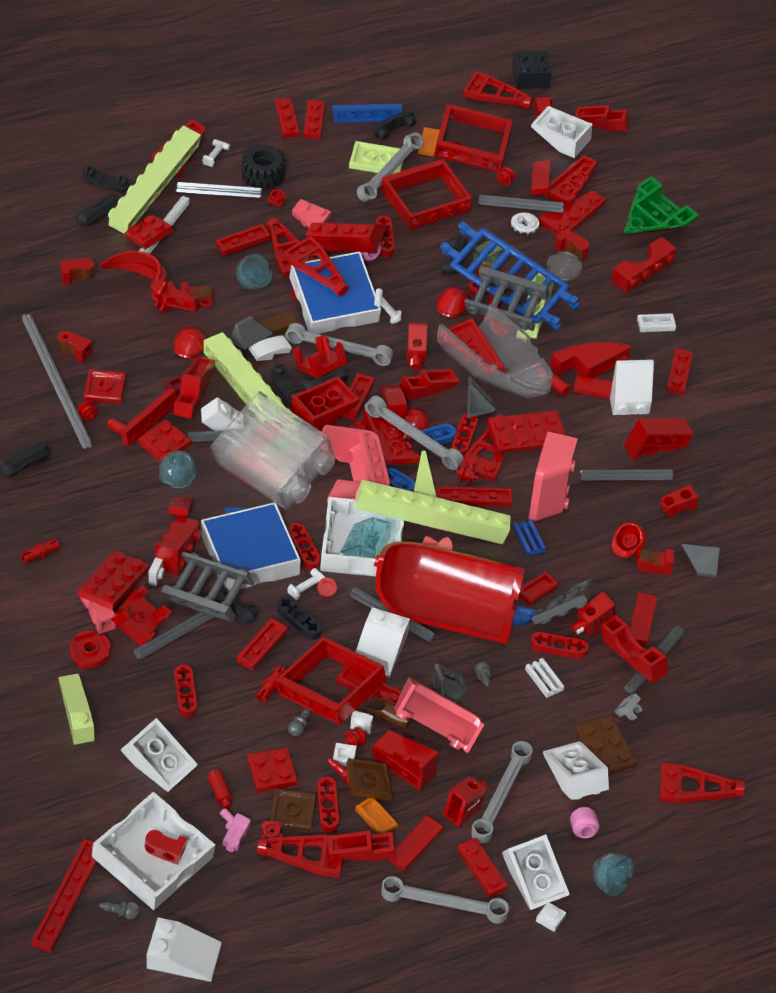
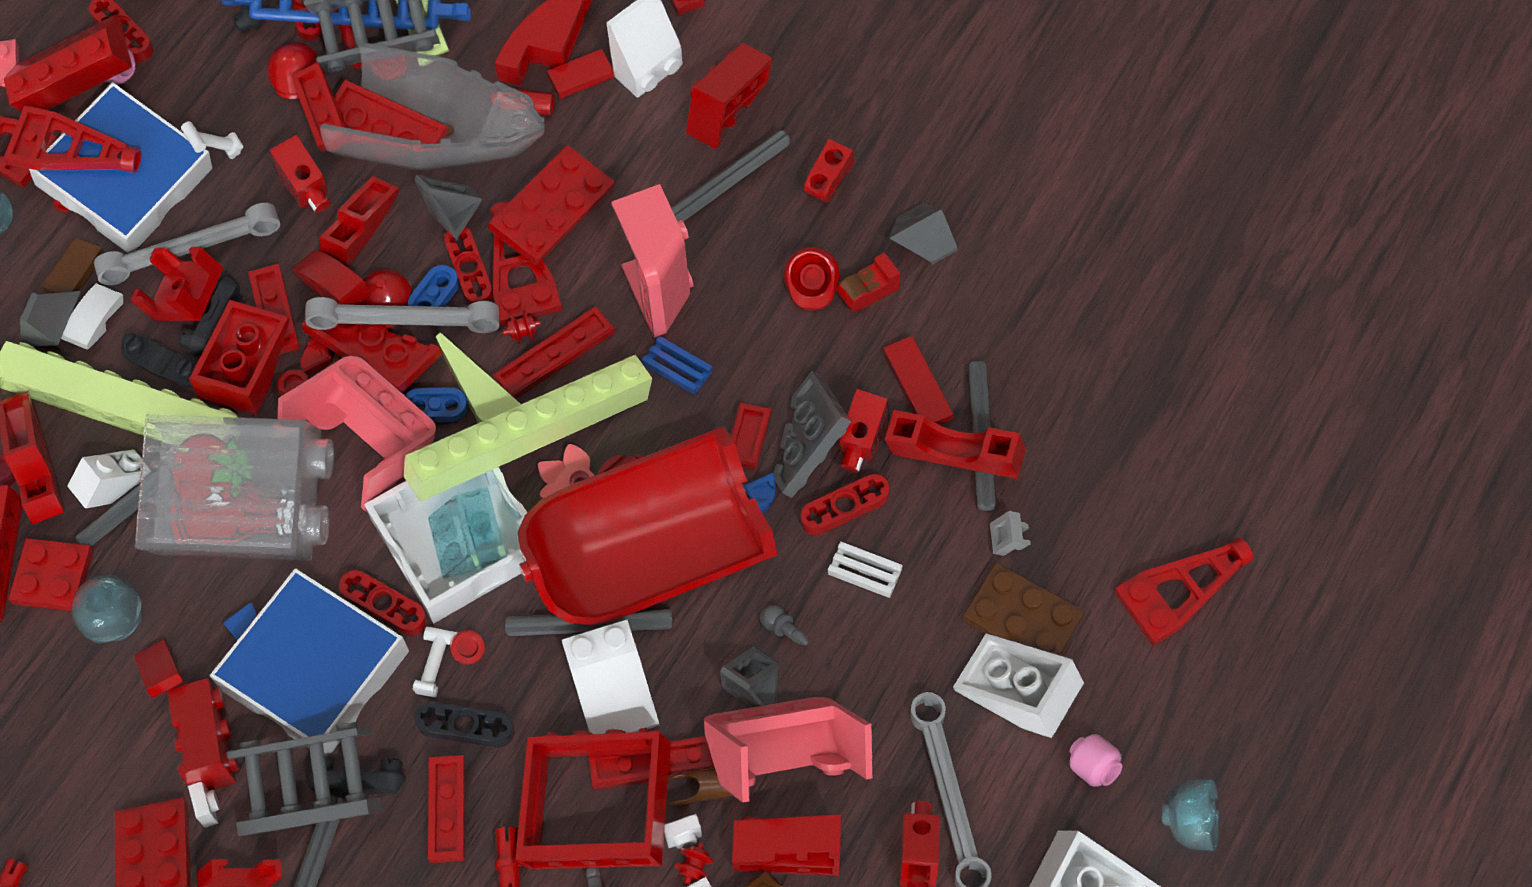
camera: 30 degrees left, 15 degrees up
(452, 316) = (317, 100): none -> red plate

